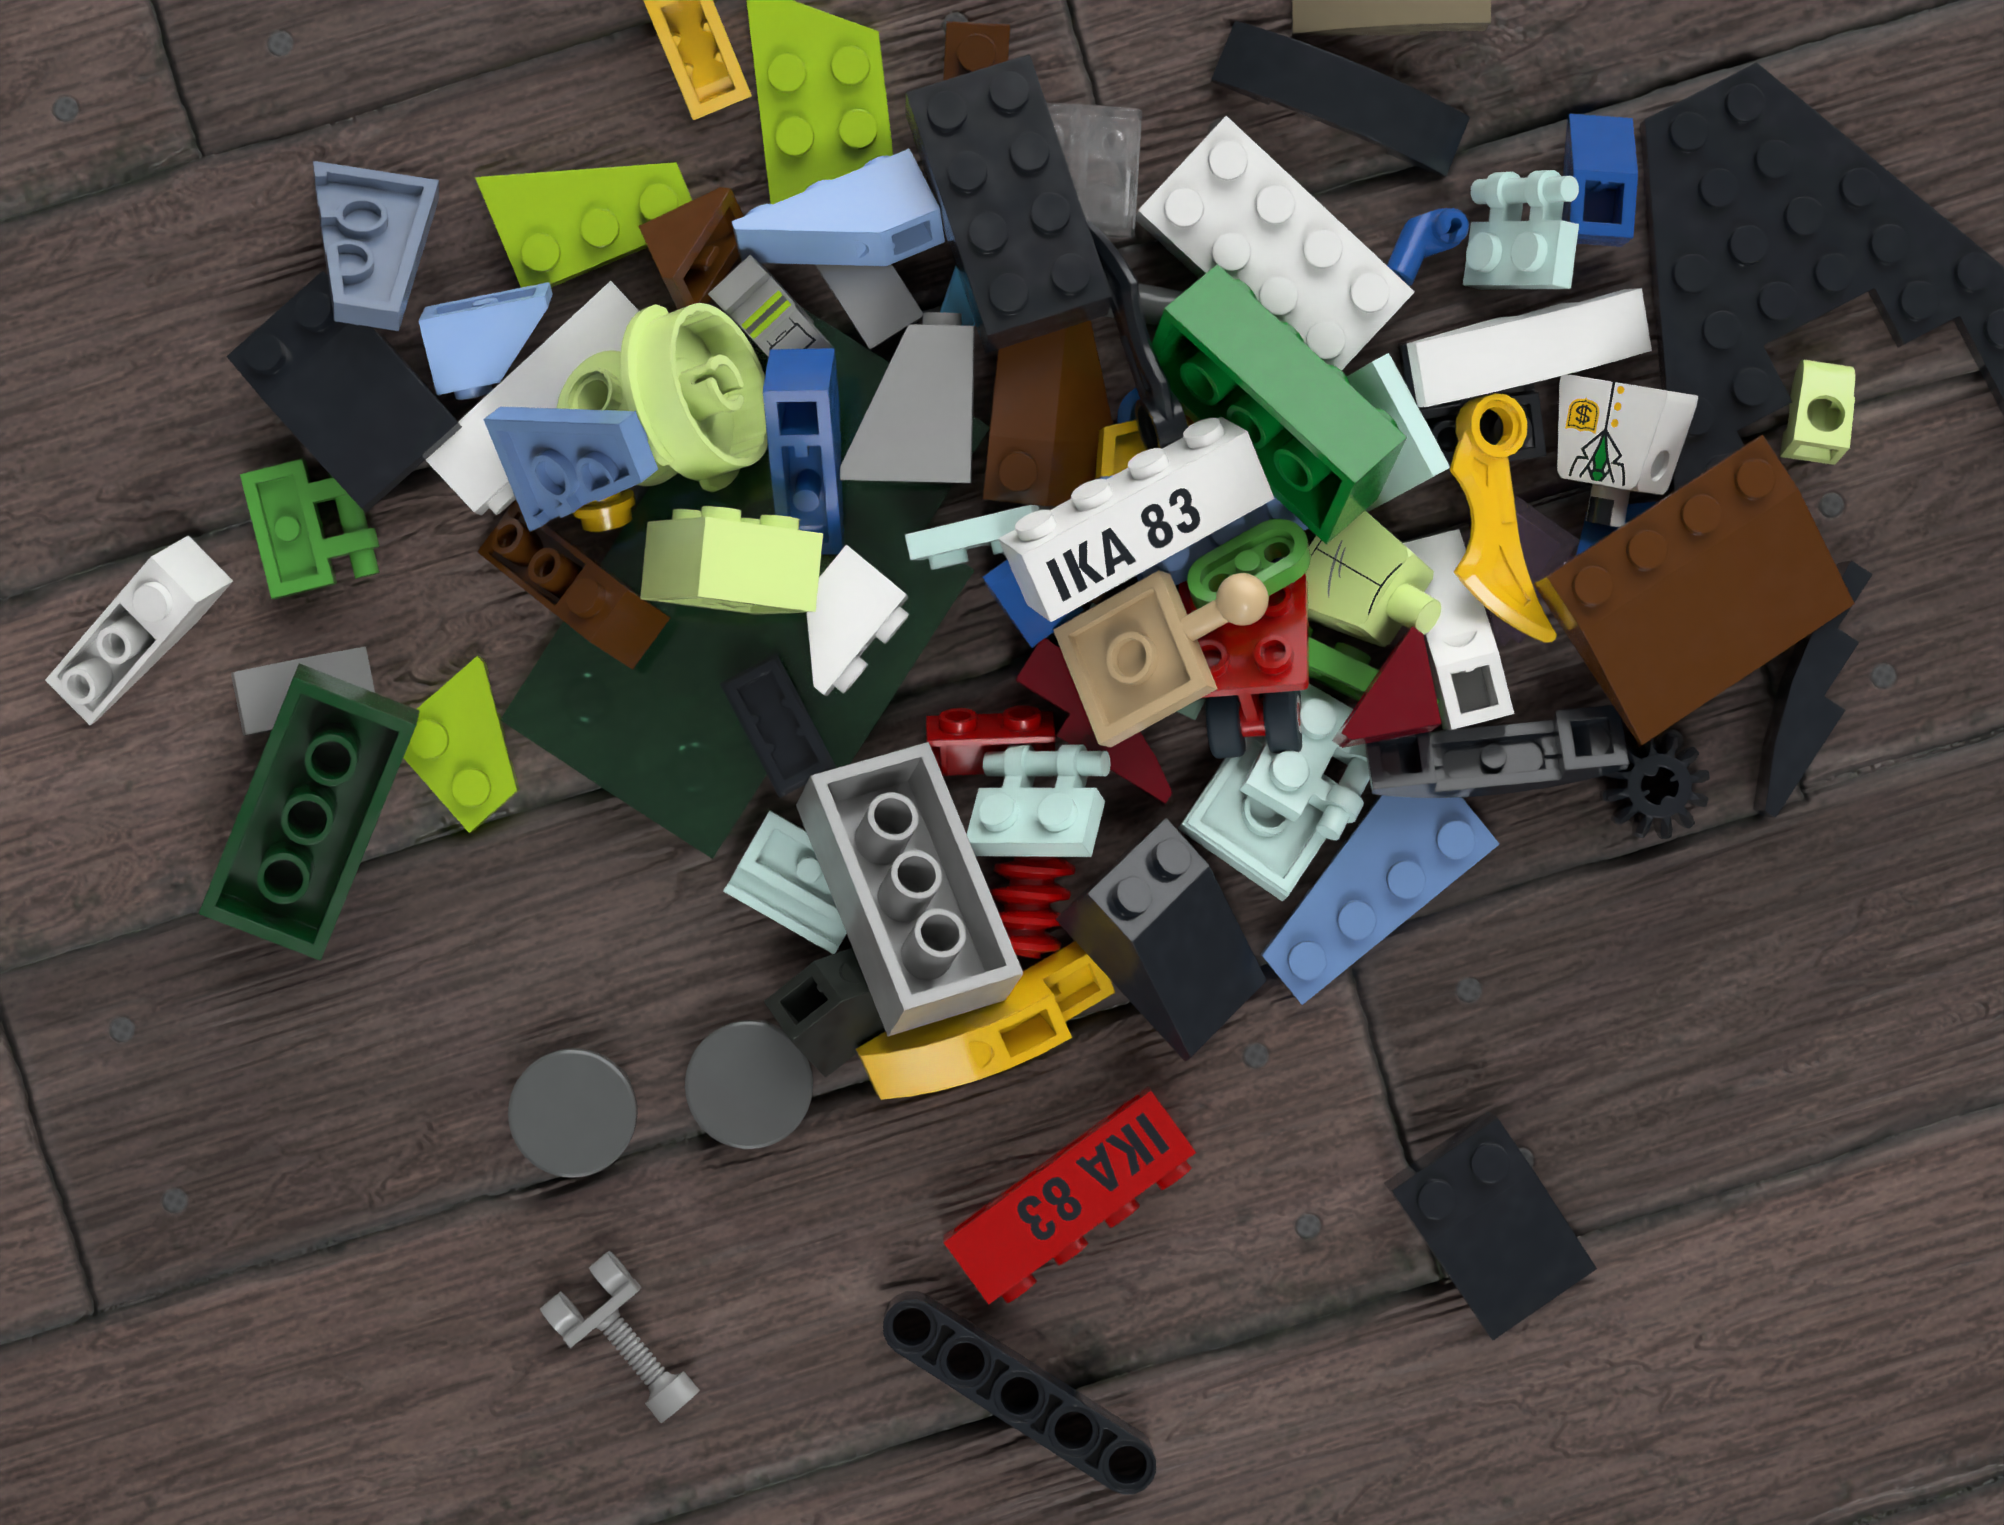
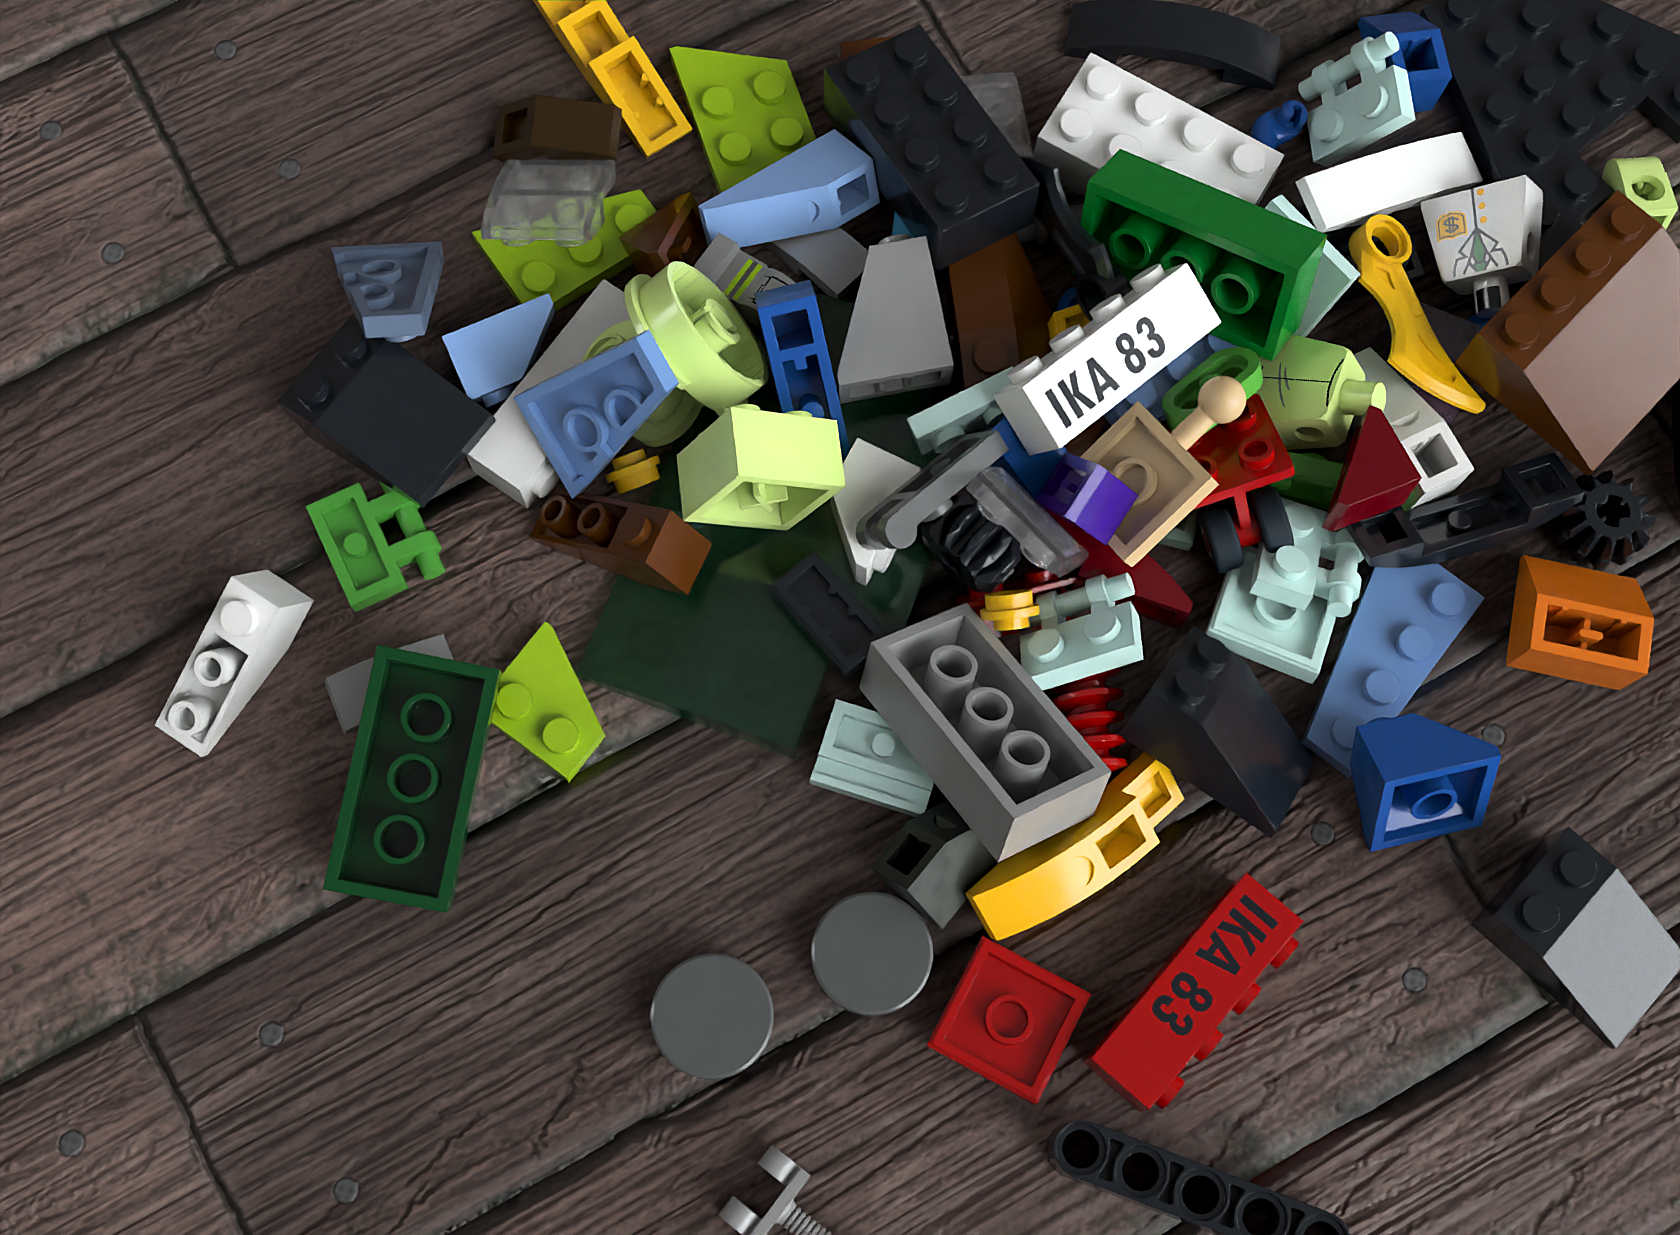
camera: 15 degrees left, 15 degrees down
(567, 165) = (548, 201): none -> clear slope
(594, 73) = (557, 128): none -> dark brown slope
(874, 1180) = (1008, 1020): none -> red plate
(907, 629) = (928, 492): none -> dark grey plate
(945, 683) = (971, 545): none -> black gear
(970, 762) = (1009, 609): none -> yellow plate
(1005, 684) = (1039, 533): none -> clear slope
(1073, 668) = (1087, 497): none -> dark purple slope
(1359, 1030) = (1419, 779): none -> blue slope
(1590, 892) = (1579, 624): none -> orange slope

